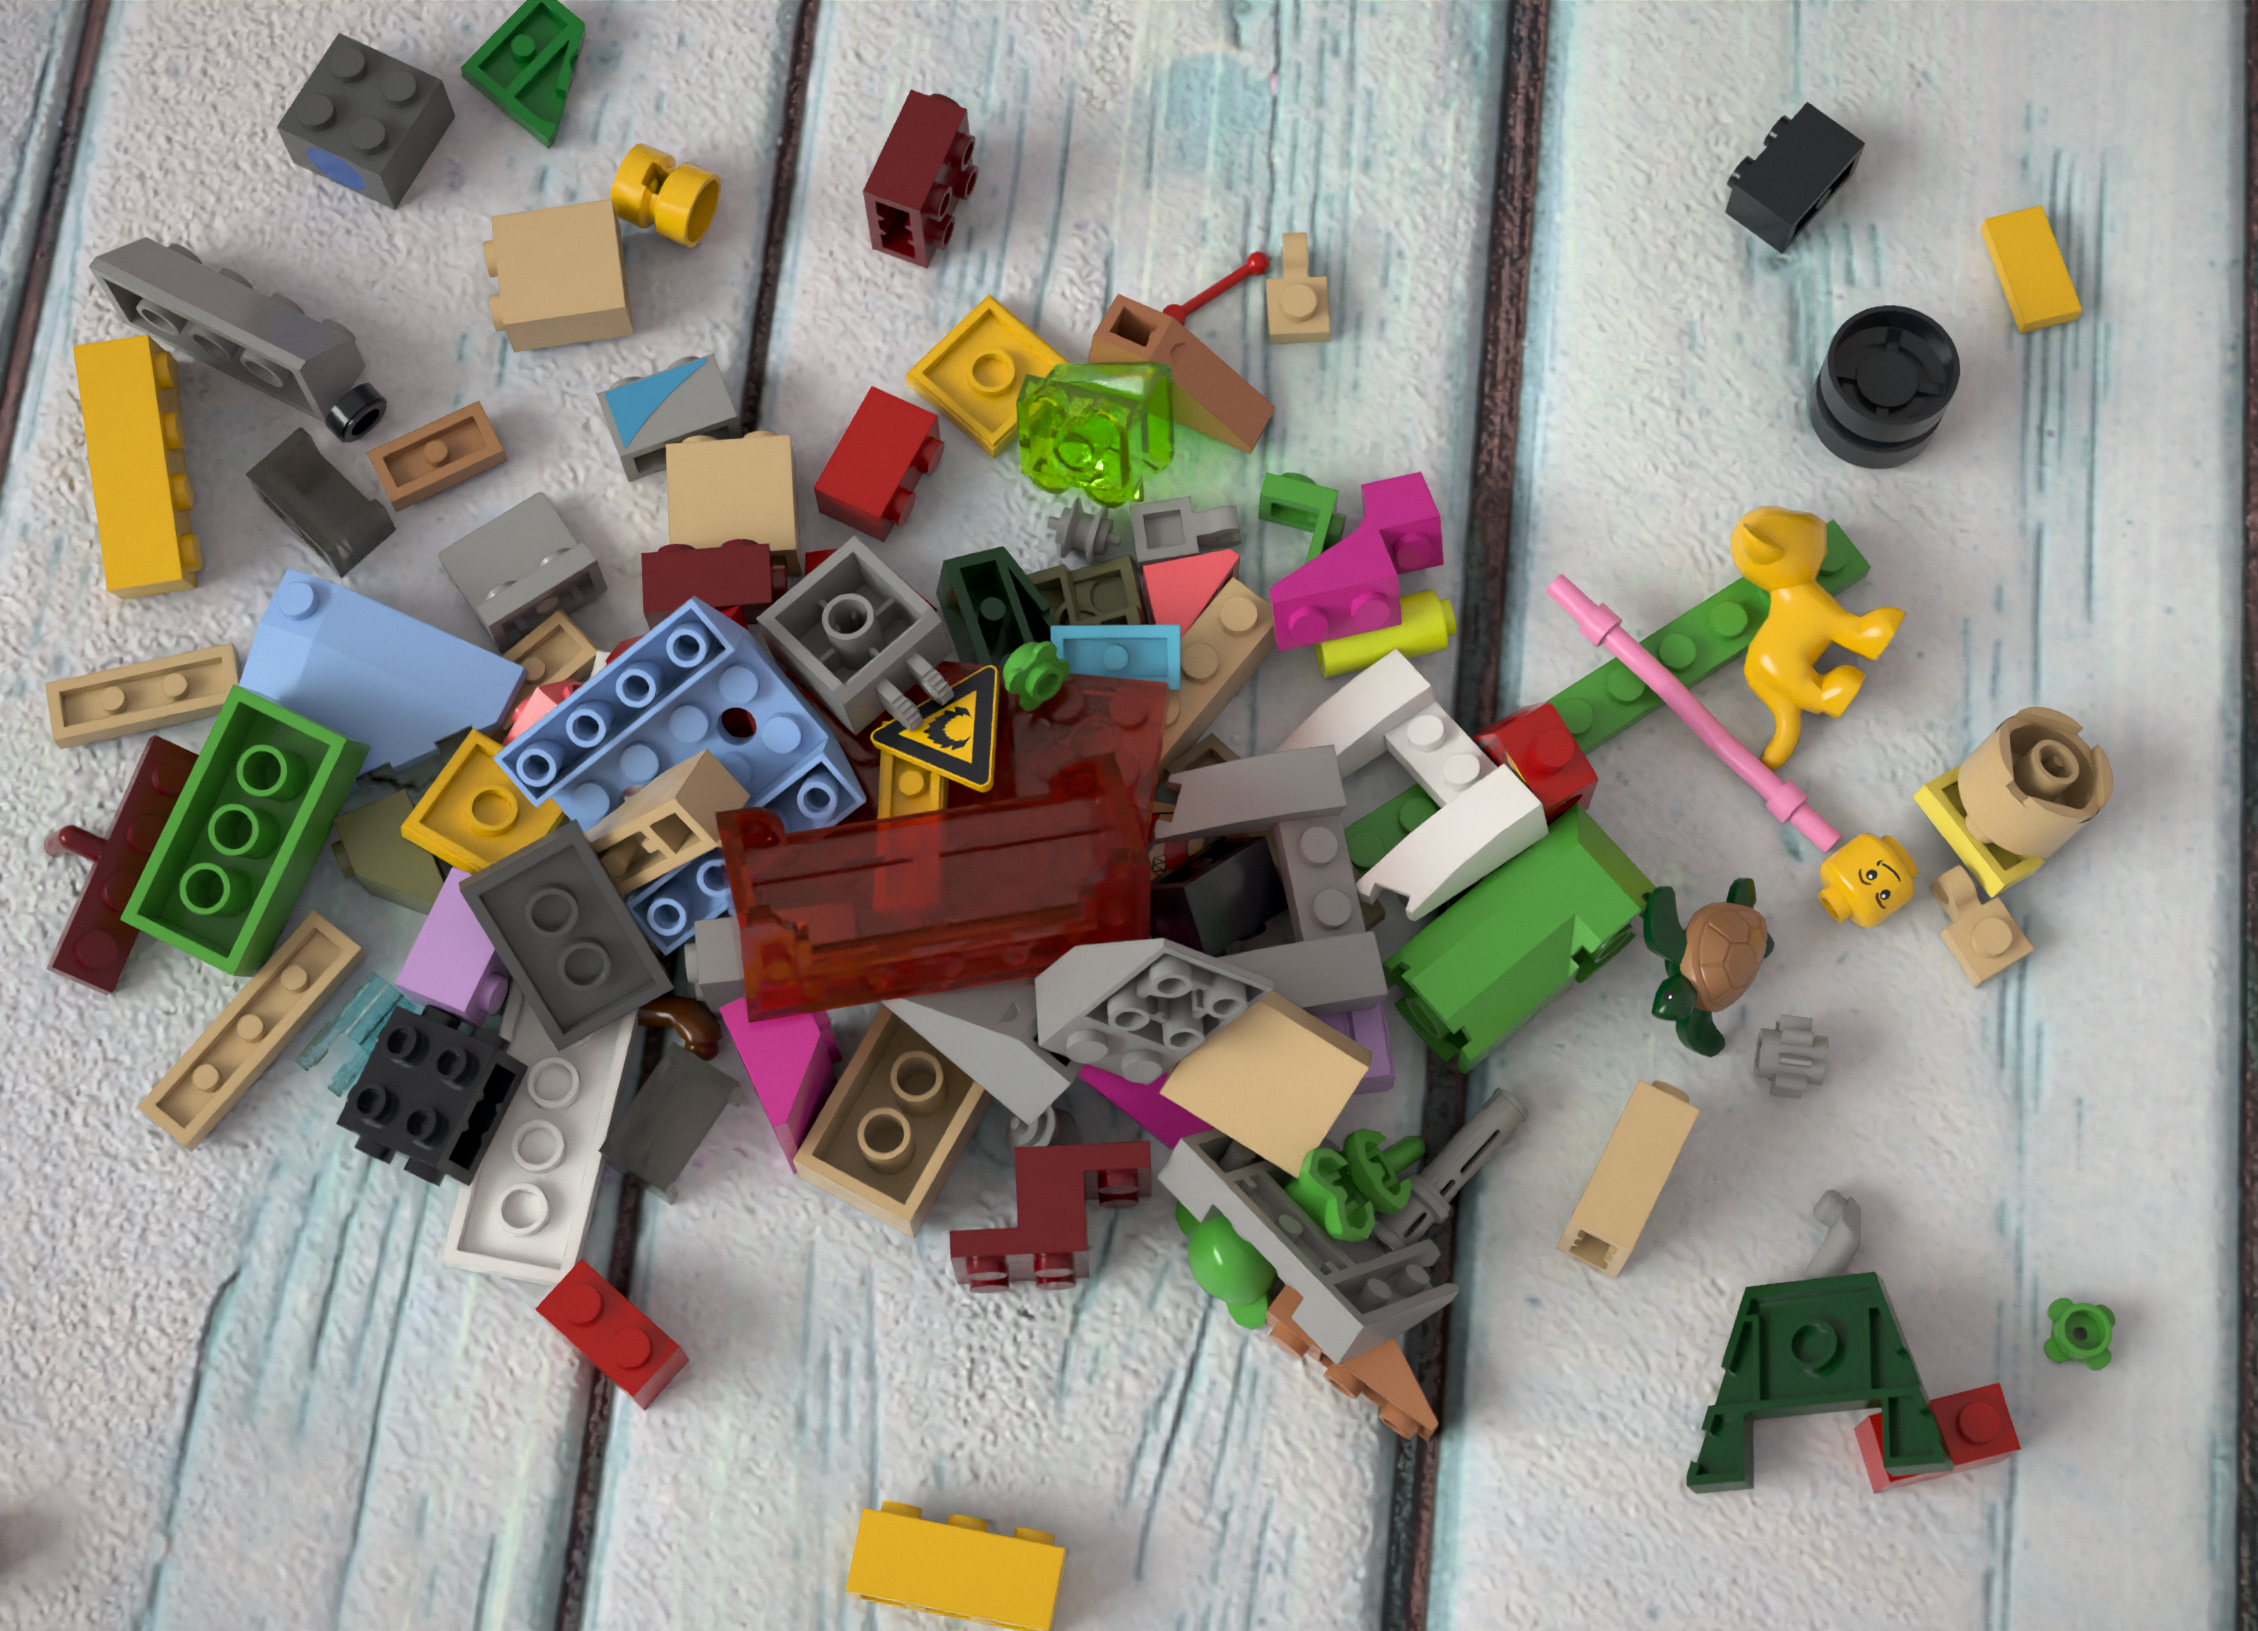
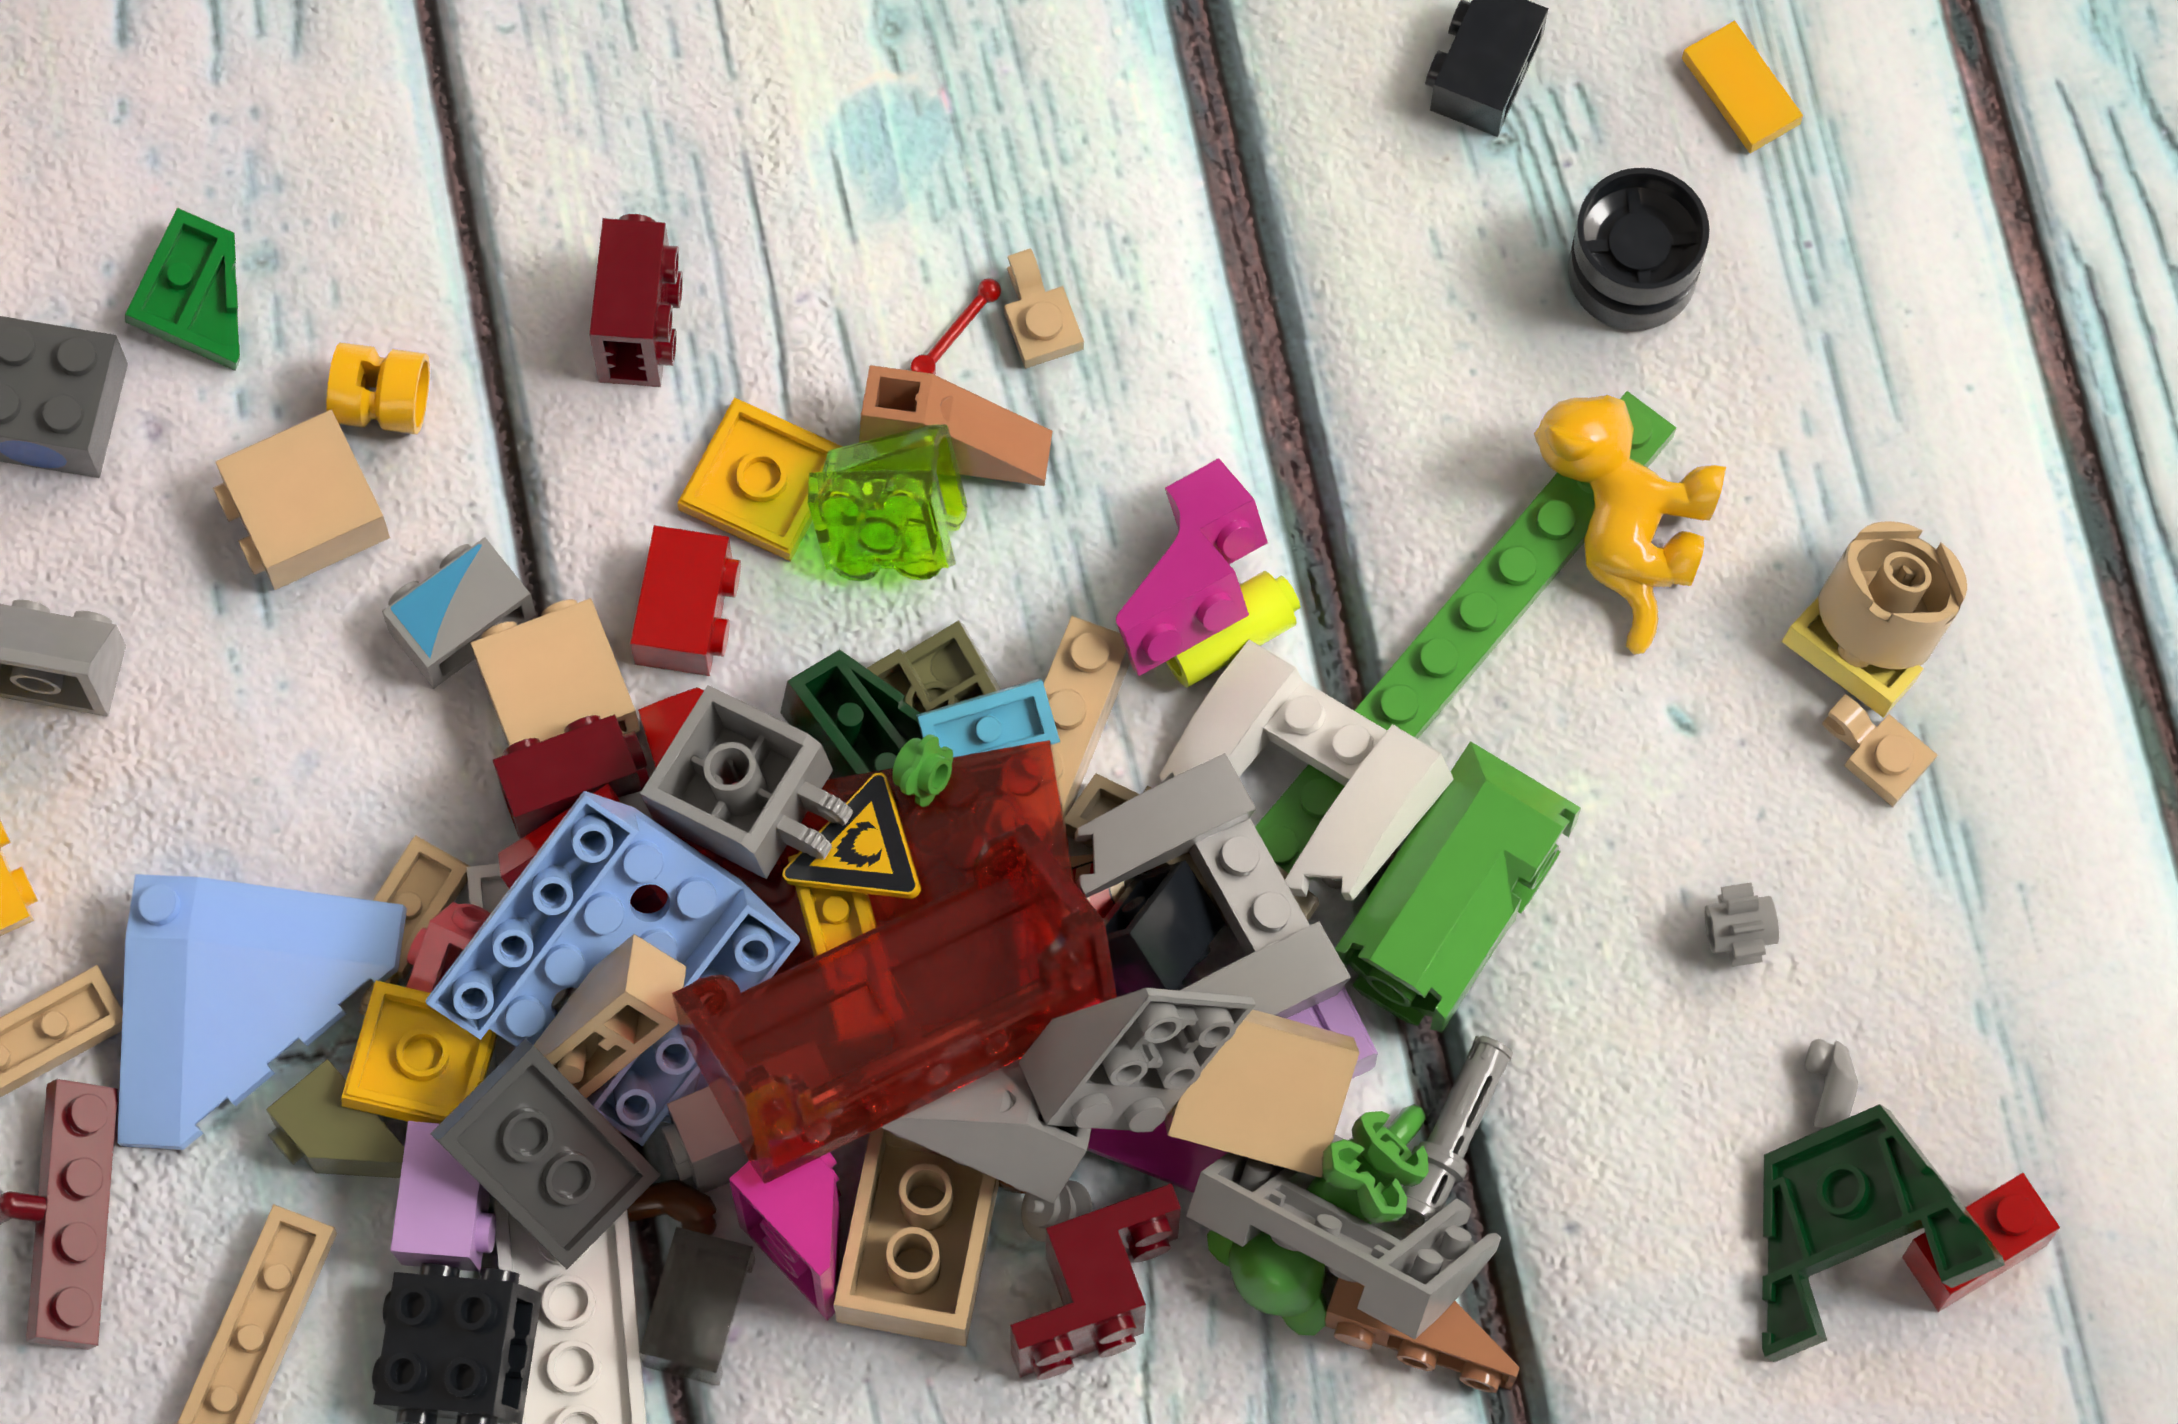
camera: 20 degrees left, 0 degrees up
(245, 832) = (187, 1148): bright green brick -> none
(320, 503) = (134, 801): clear smoke panel -> none
(356, 413) = (140, 698): black tile -> none
(361, 1023) = (360, 1301): clear light blue hinge -> none
(437, 456) = (236, 718): medium nougat plate -> none
(522, 570) = (362, 808): light grey bracket -> none
(1084, 531) = (907, 610): light grey wheel -> none
(1172, 531) = (993, 587): light grey plate -> none
(1186, 586) = (1026, 641): coral slope -> none
(1303, 505) = (1108, 522): bright green bracket -> none
(1542, 756) = (1423, 704): red torso -> none
(1629, 1177) = (1626, 1084): tan brick -> none
(1706, 962) = (1637, 858): animal -> none
(1783, 799) = (1440, 561): bright pink bar -> none
(1866, 880) = (1762, 735): yellow head -> none
(2093, 1320) = (2094, 1090): bright green plate -> none

